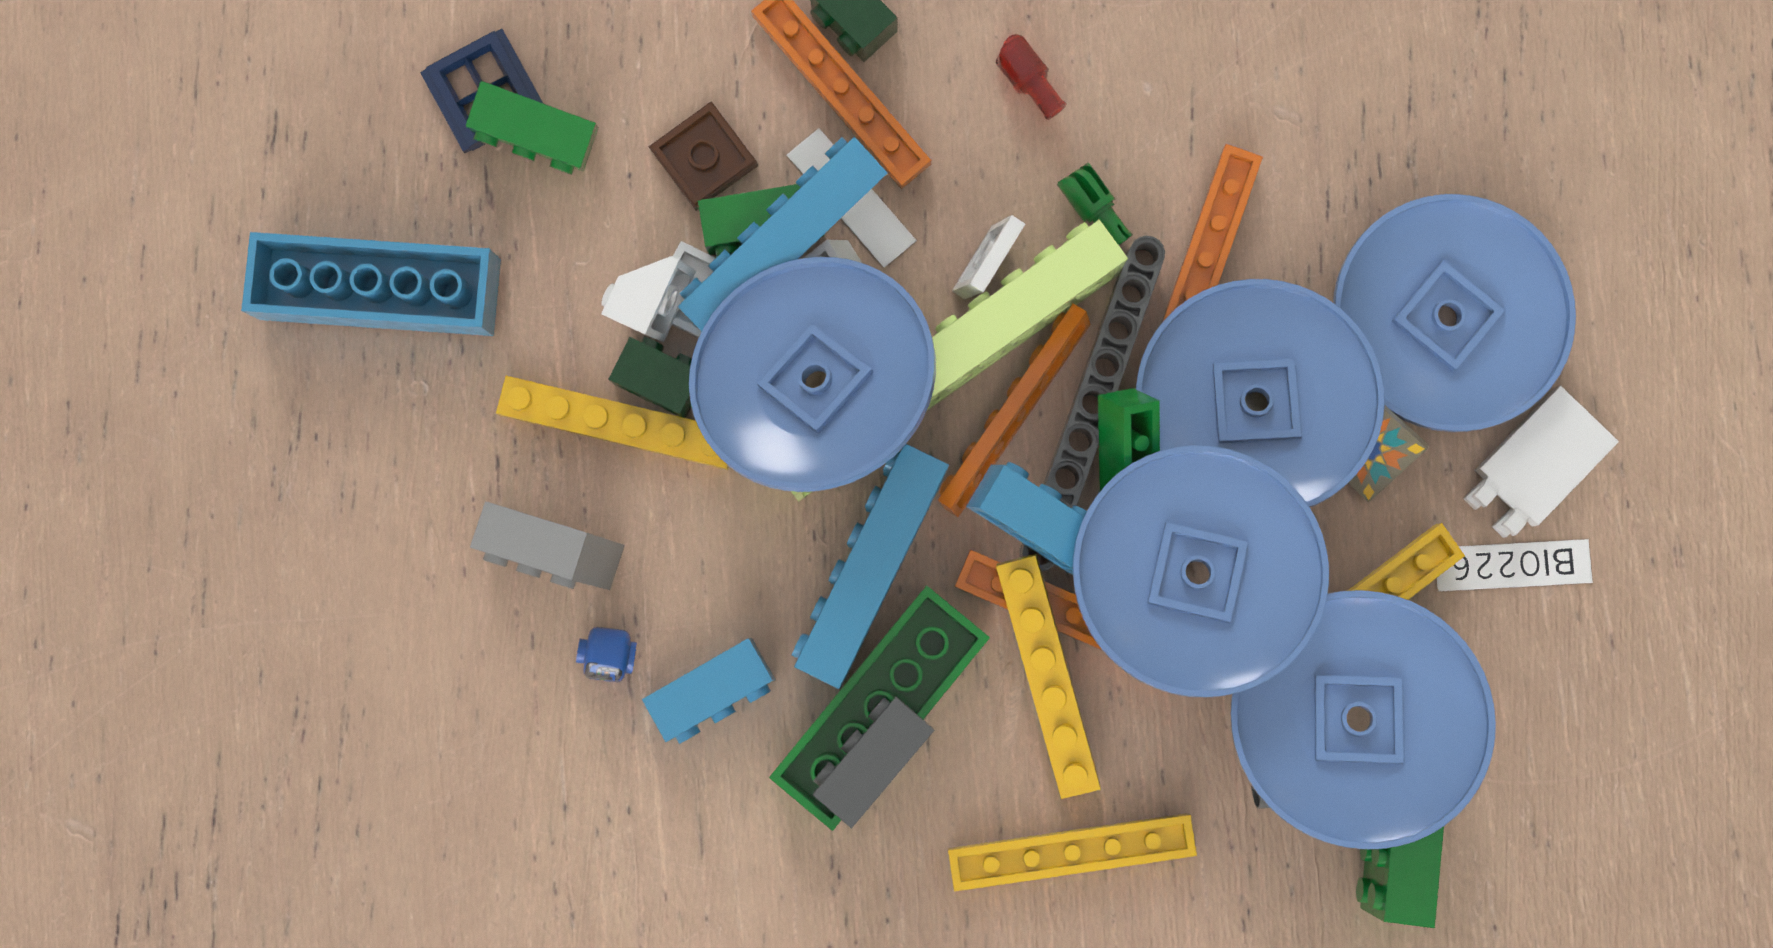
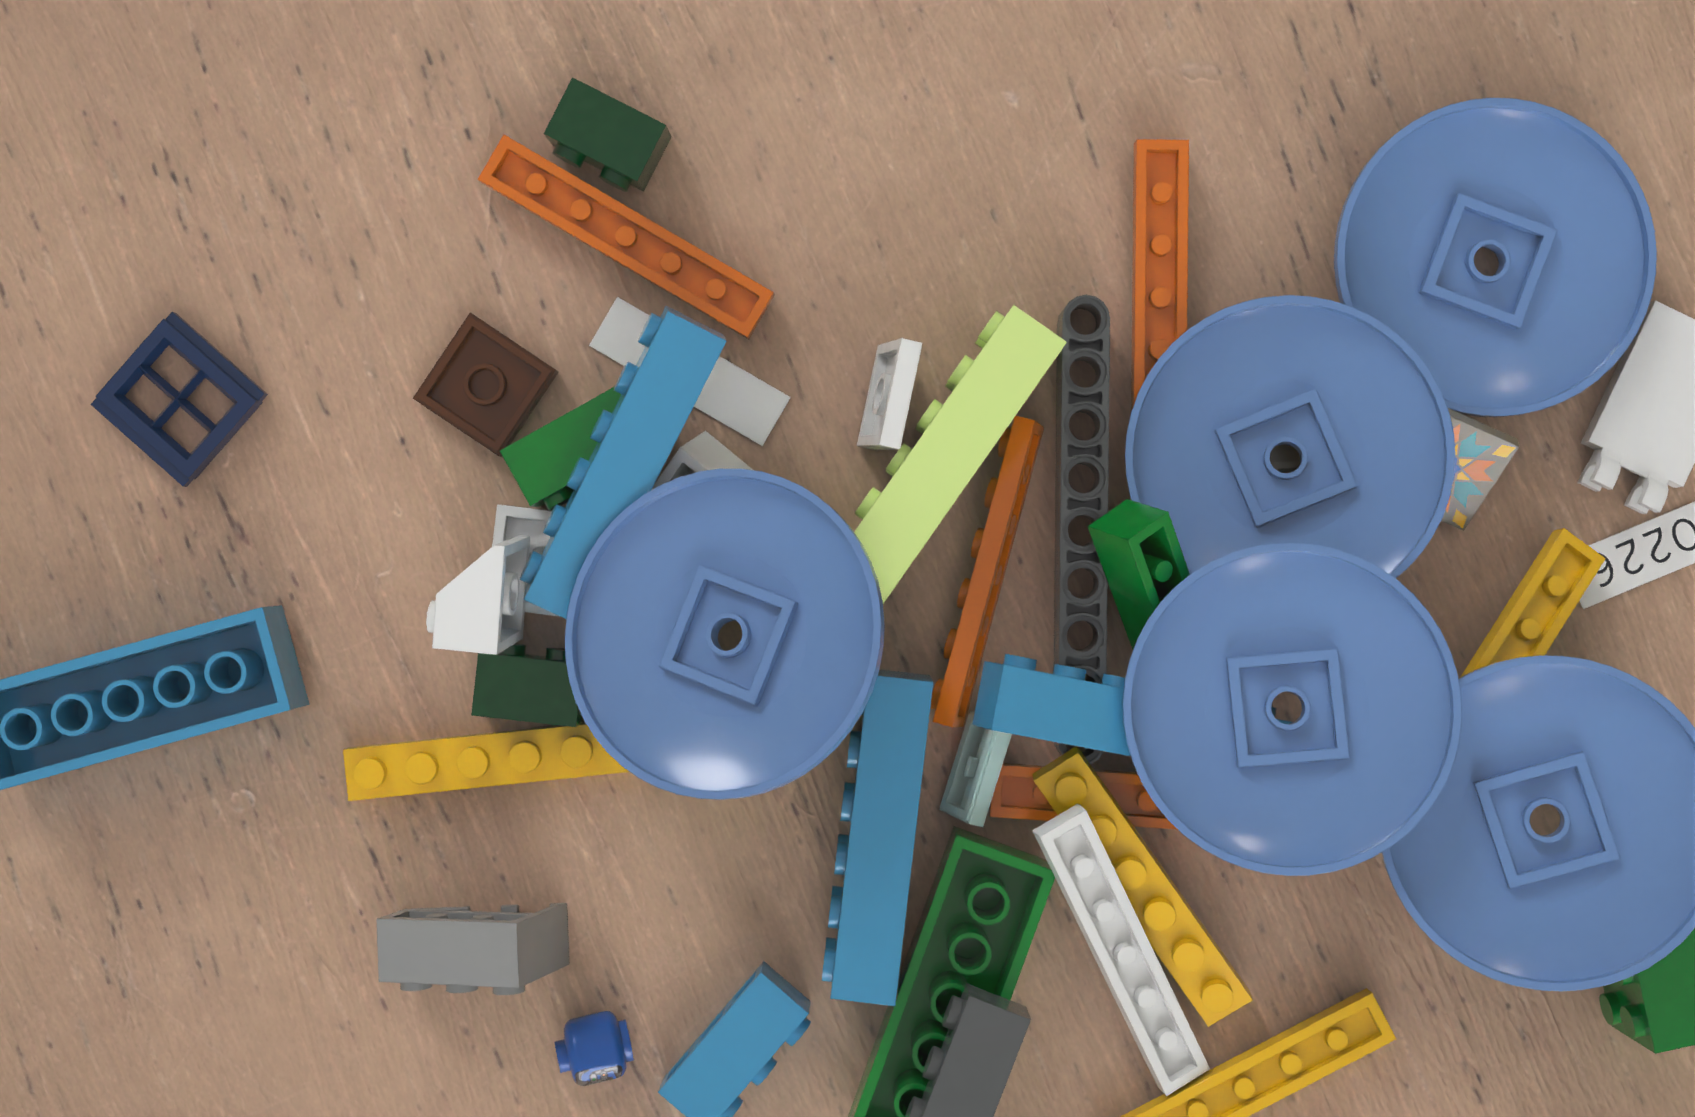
camera: 20 degrees left, 5 degrees up
(531, 128) = (256, 431): green brick -> none
(957, 548) = (975, 773): none -> light aqua tile
(1017, 713) = (1121, 948): none -> white plate
(1029, 75) = (858, 137): clear red arm -> none
(1093, 201) = (997, 274): green arm -> none

